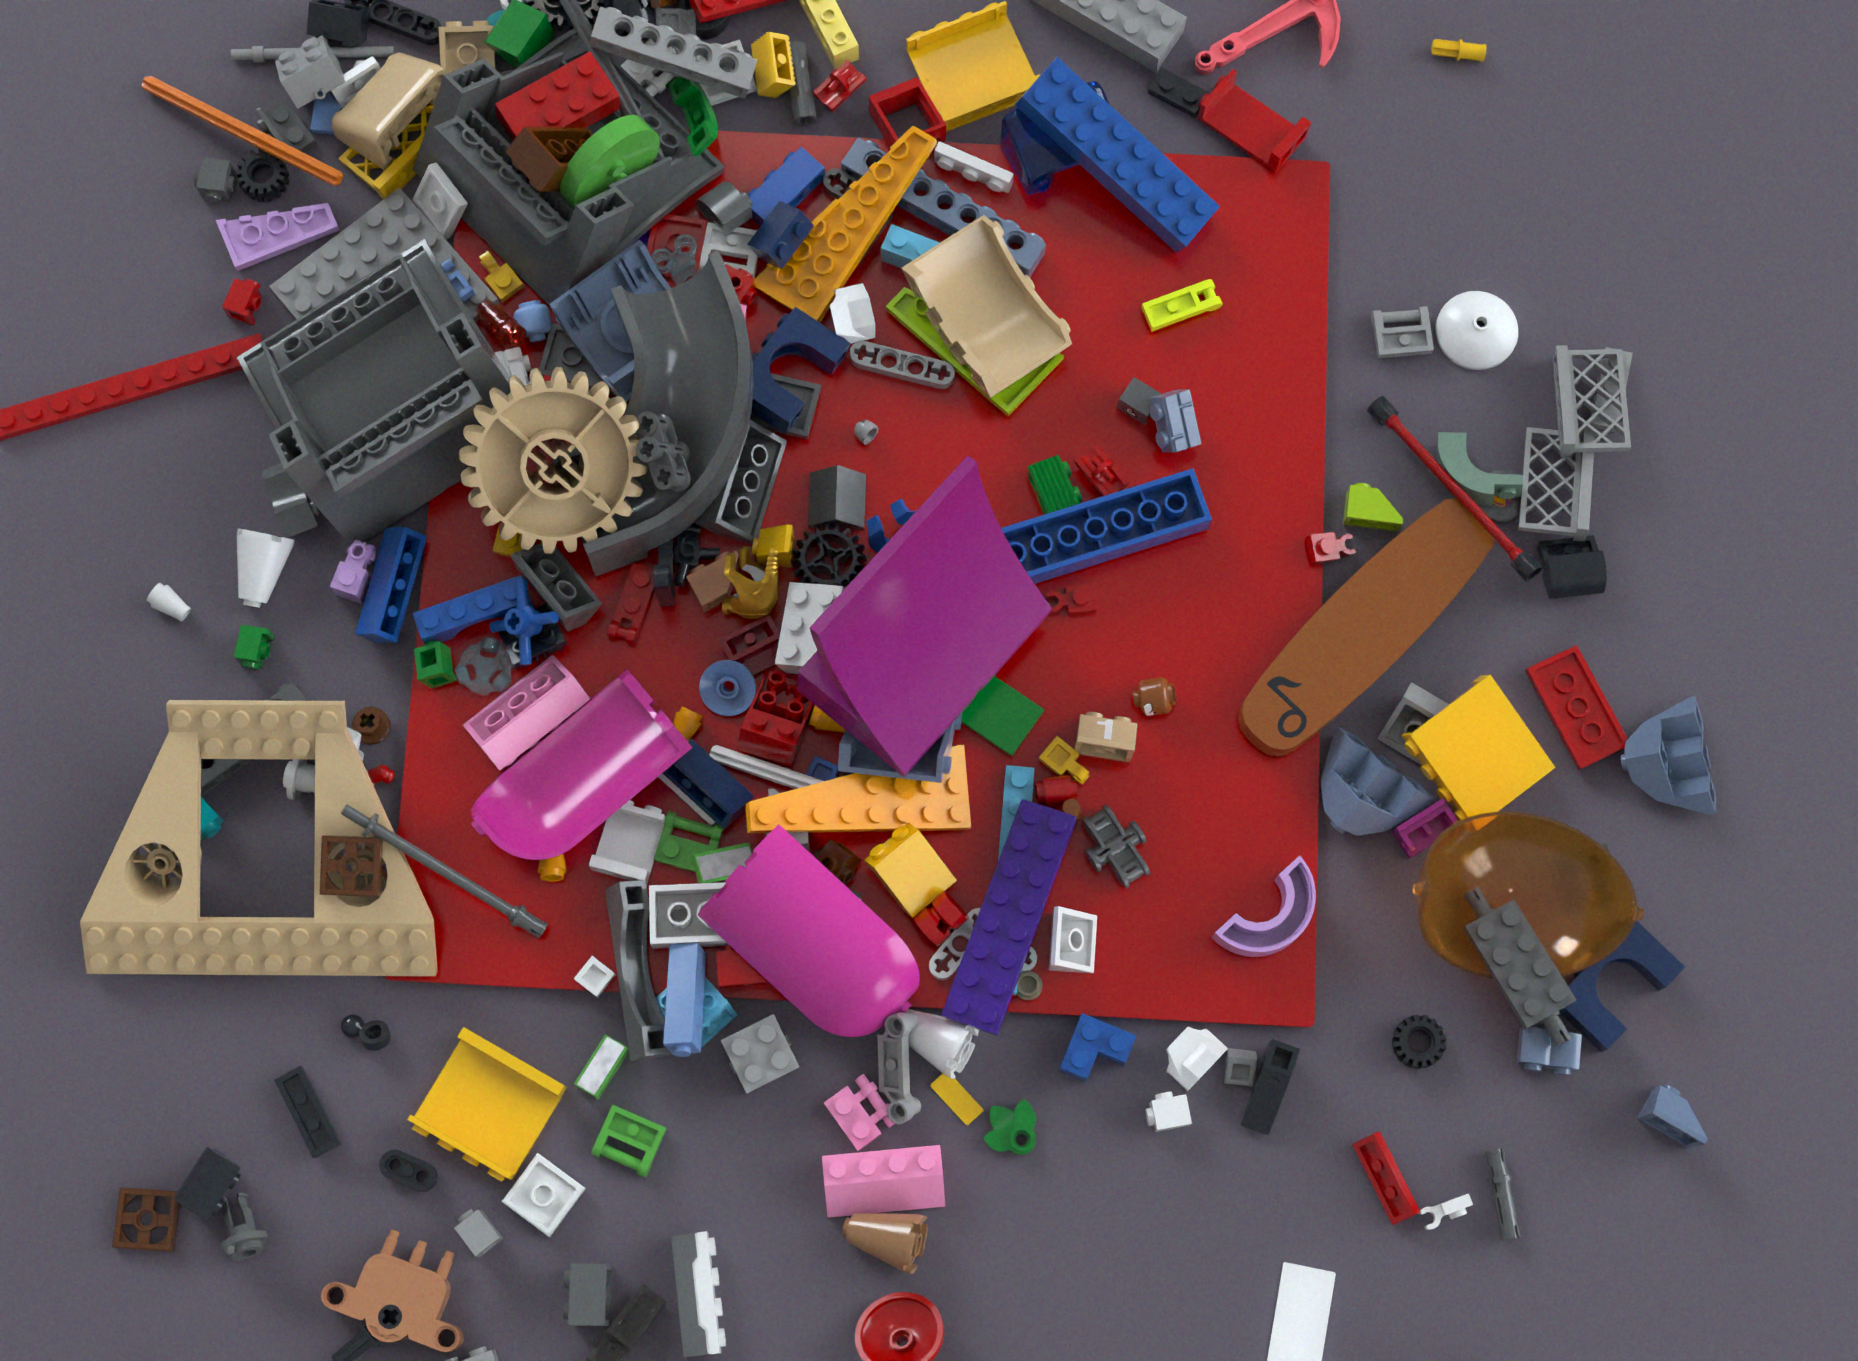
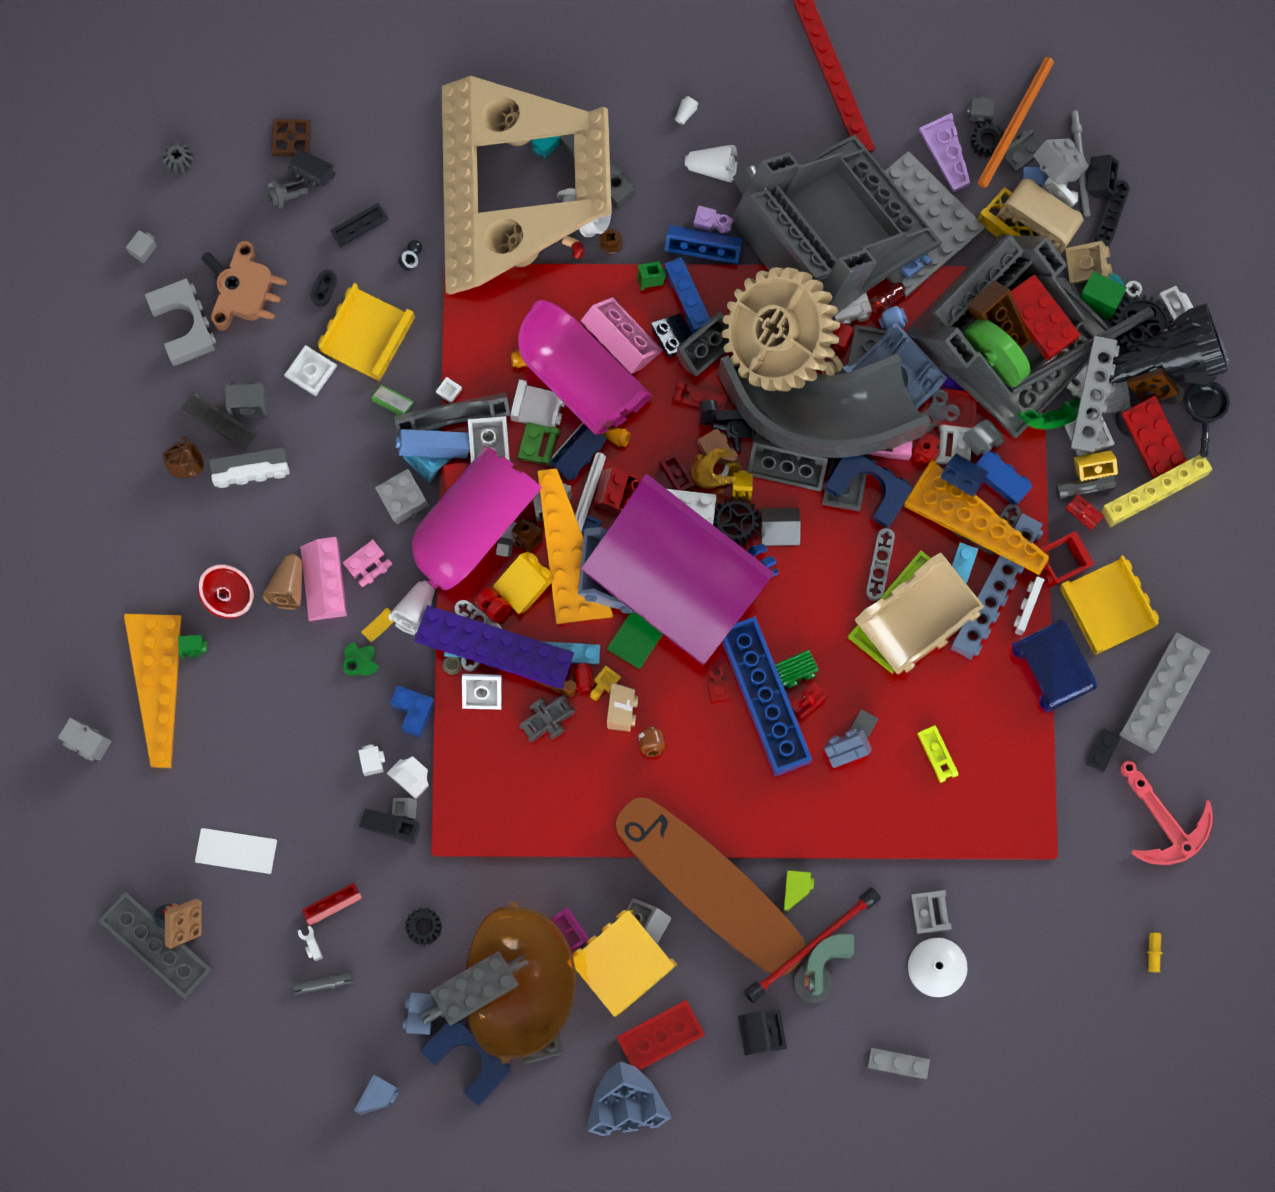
camera: 90 degrees right, 0 degrees up
(243, 300) = (896, 135): red brick -> none
(253, 646) = (658, 163): green brick -> none
(327, 887) = (522, 228): reddish brown piece -> none
(440, 200) = (974, 252): white plate -> none
(477, 1232) = (286, 332): light grey brick -> none
(485, 667) = (650, 307): clear light blue piece -> none
(501, 279) = (923, 298): yellow plate -> none
(516, 914) = (486, 338): dark grey bar -> none
(523, 621) = (678, 326): blue bar -> none
(632, 1131) = (351, 422): bright green plate -> none
(664, 459) = (791, 399): dark grey axle -> none
(720, 863) = (524, 461): flat silver slope -> none
(721, 699) = (639, 456): medium blue dish -> none
(853, 314) = (911, 525): white slope -> none
(865, 431) = (829, 542): light grey hinge -> none
(894, 1066) = (395, 581): light grey plate -> none
(1117, 155) = (1039, 699): blue brick -> none
(1251, 123) = (1082, 801): red panel -> none
(1272, 936) = (497, 833): lavender brick -> none
(1326, 548) = (766, 858): plate -> none
(1364, 790) = (595, 888): sand blue brick -> none
(1567, 395) = (885, 1027): light grey fence -> none
(1580, 491) = (825, 1038): light grey fence -> none

